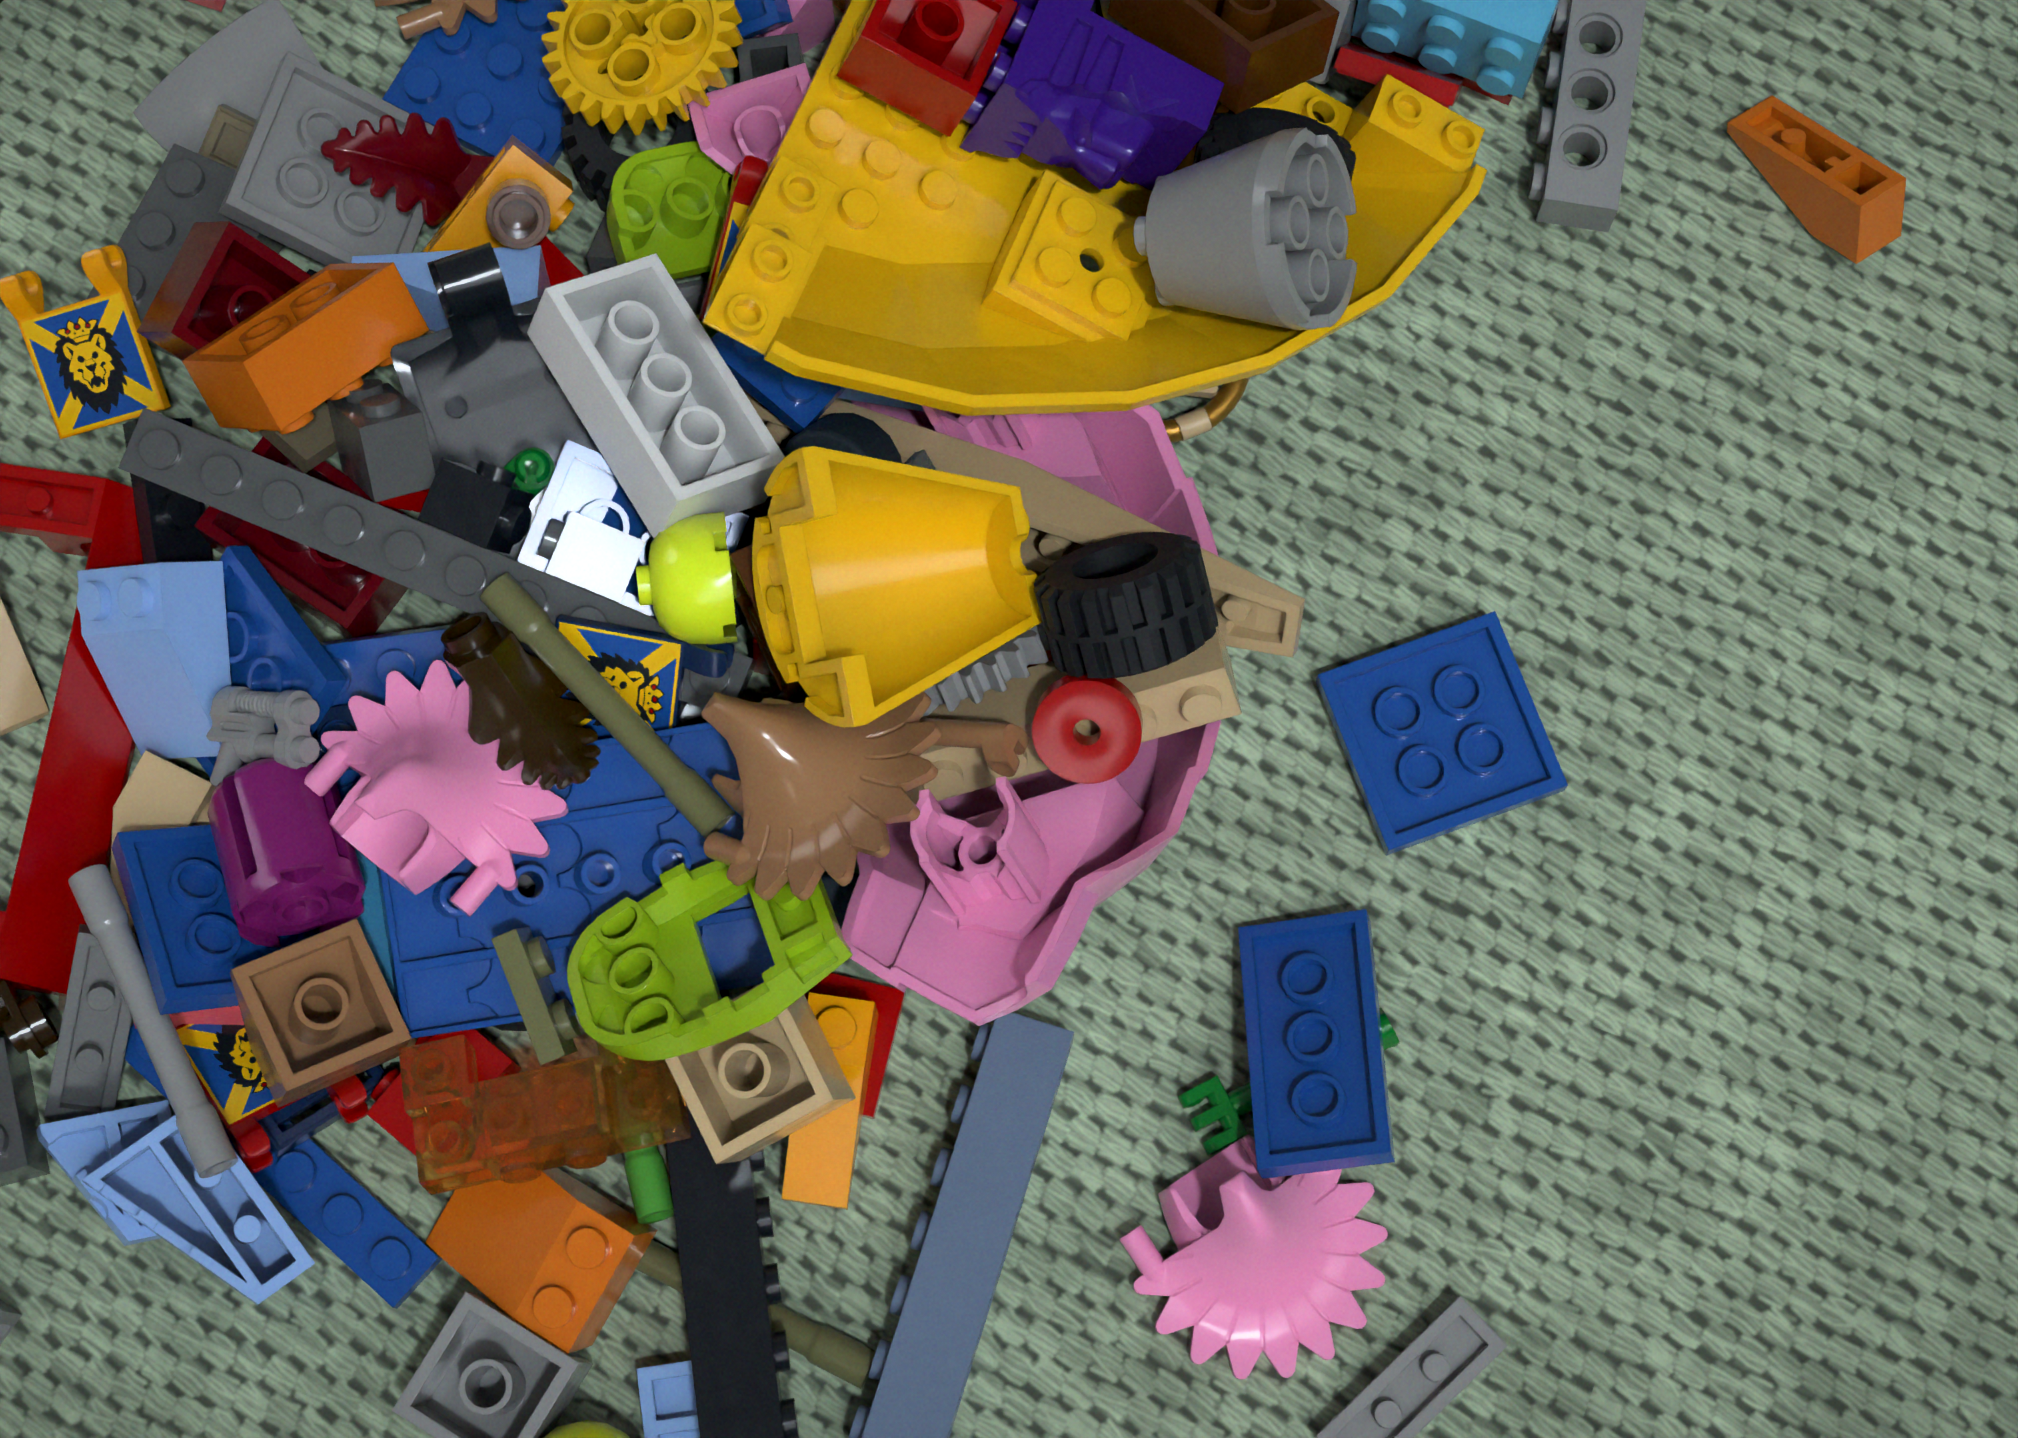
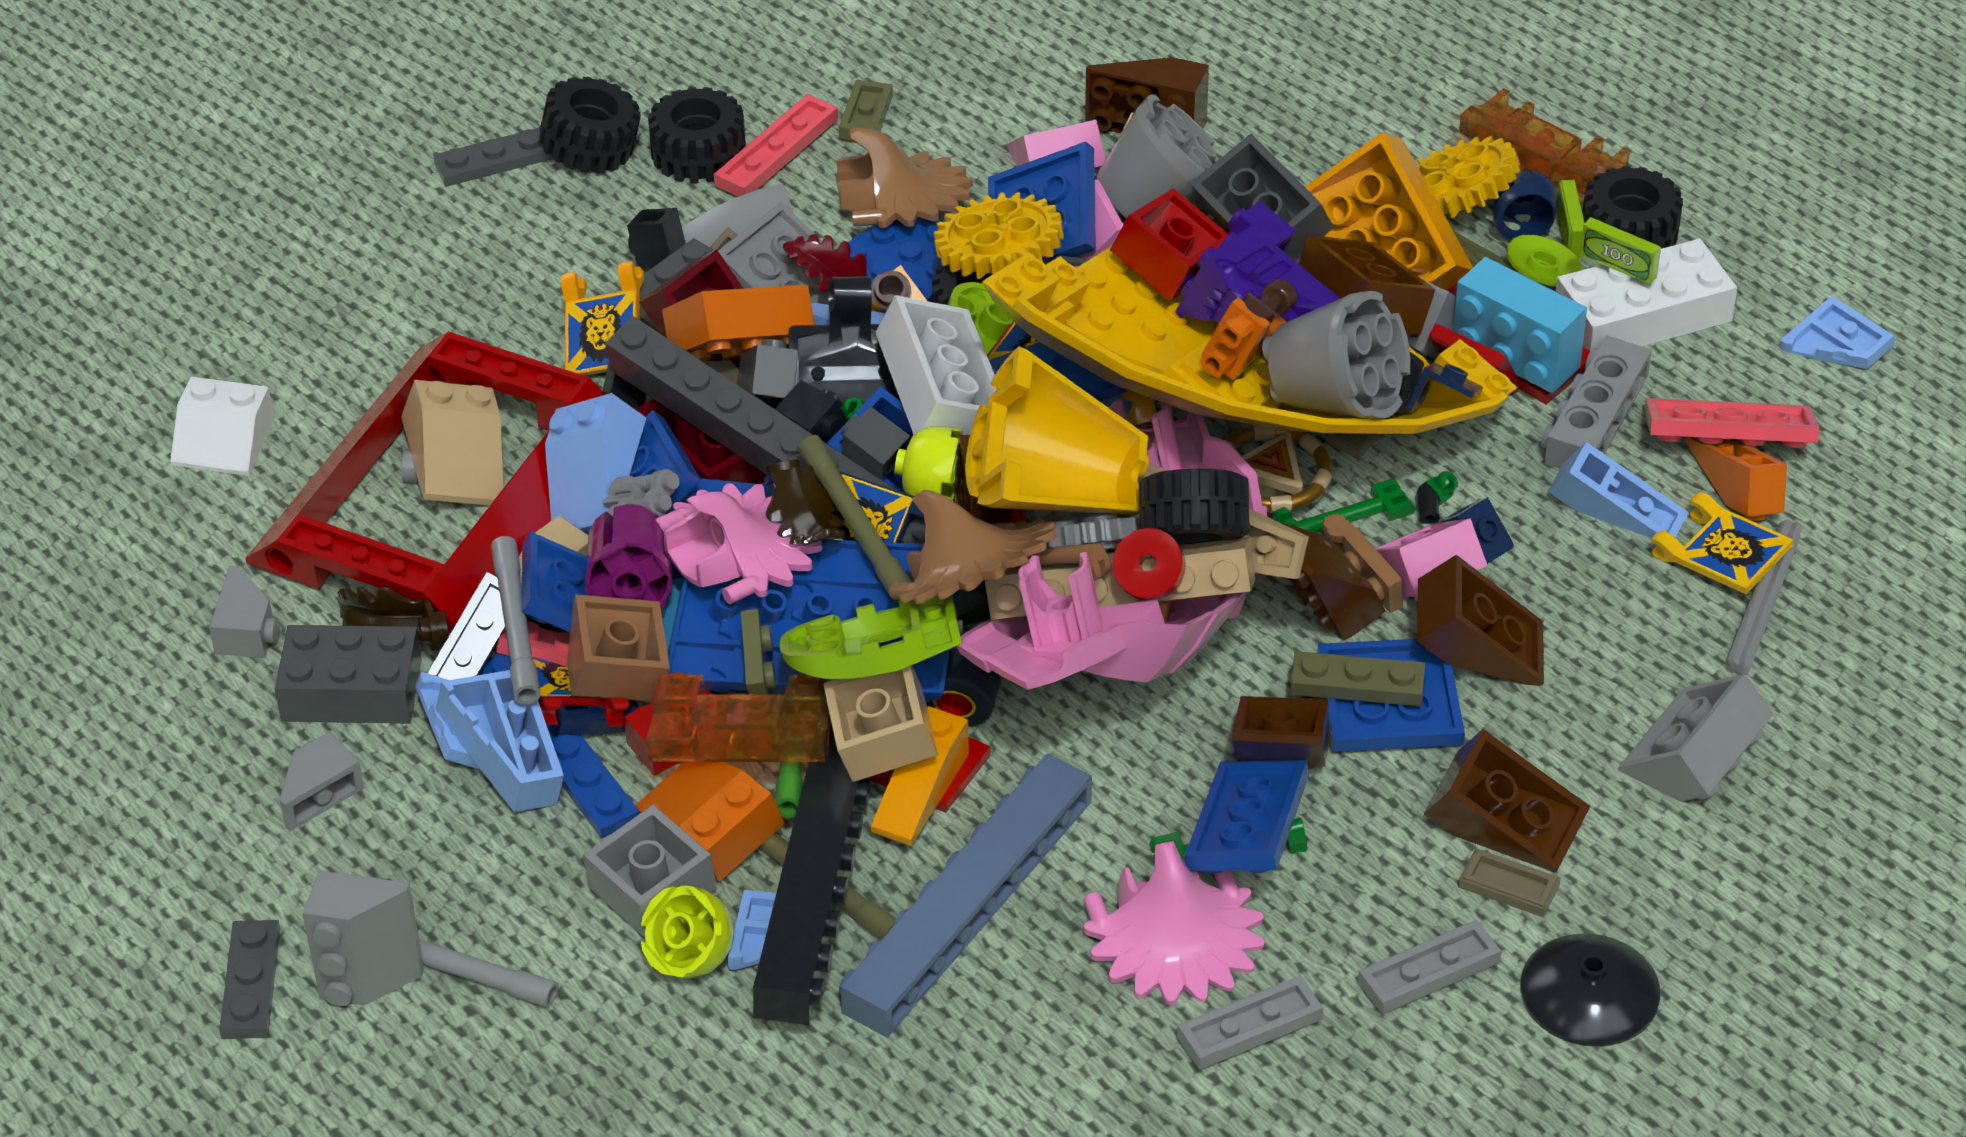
camera: 15 degrees right, 30 degrees down
(115, 144) = (655, 235): none -> black brick
(1105, 211) = (1244, 328): none -> orange hips
(1213, 454) = (1385, 498): none -> green hinge
(1312, 559) = (1334, 588): none -> reddish brown slope
(1320, 872) = (1281, 729): none -> reddish brown slope
(1333, 494) = (1366, 560): none -> medium nougat hinge
(1395, 733) = (1357, 678): none -> olive plate
(1397, 330) = (1433, 494): none -> arm
(1398, 168) = (1448, 375): none -> dark blue bracket
(1425, 462) = (1428, 548): none -> bright pink slope
(1480, 379) = (1488, 528): none -> dark blue bracket
(1539, 588) = (1478, 624): none -> reddish brown slope
(1628, 1218) = (1429, 966): none -> light grey plate
(1658, 898) = (1506, 804): none -> reddish brown slope
(1661, 273) = (1613, 494): none -> light blue slope
(1693, 1026) = (1509, 882): none -> dark tan tile
(1789, 87) = (1731, 420): none -> coral plate
(1807, 1191) = (1589, 1005): none -> black dish
(1844, 327) = (1726, 548): none -> flag
(1887, 699) = (1699, 738): none -> light grey slope
(1909, 399) = (1761, 606): none -> light grey axle

